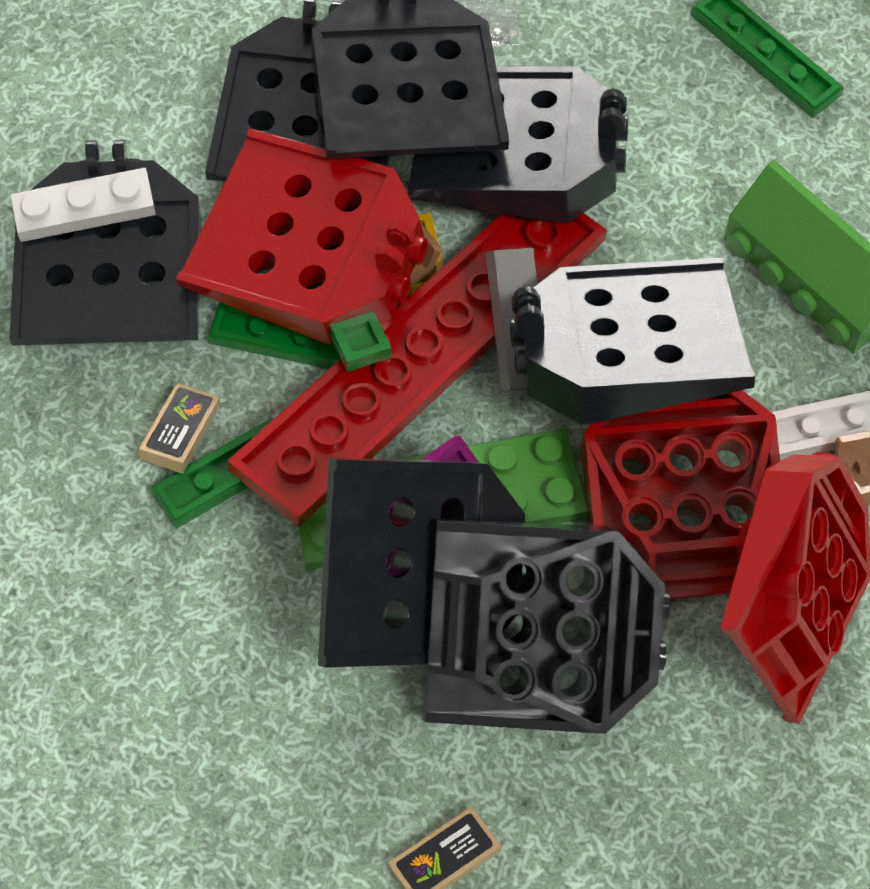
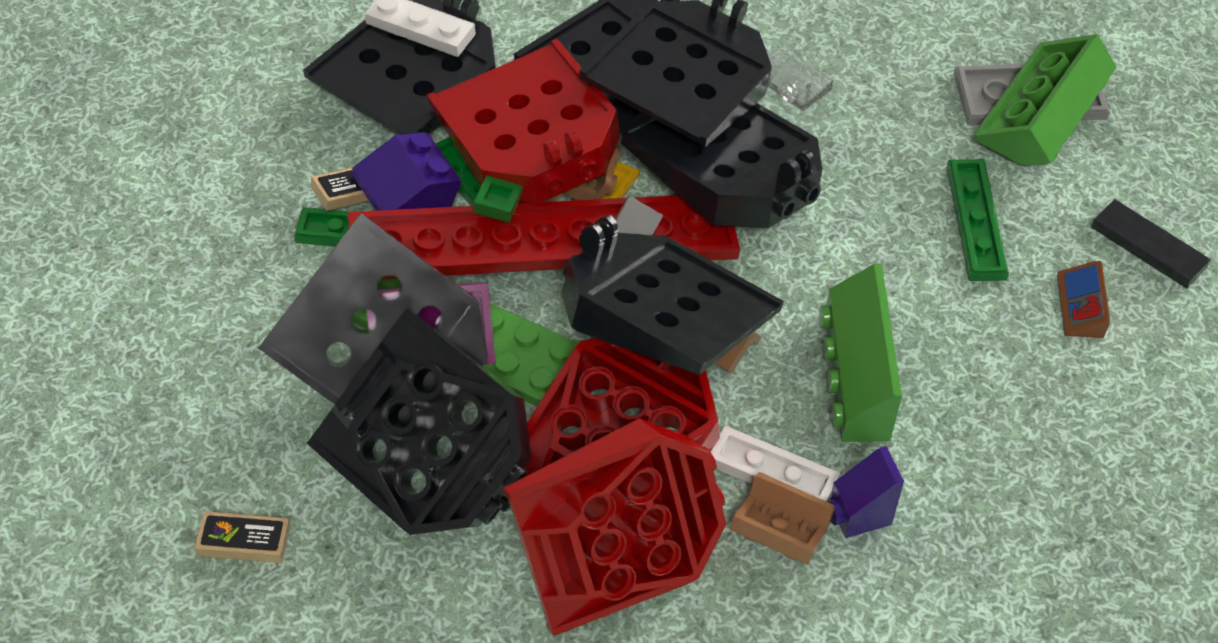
camera: 40 degrees right, 10 degrees down
(235, 380) = (407, 174): none -> dark purple slope

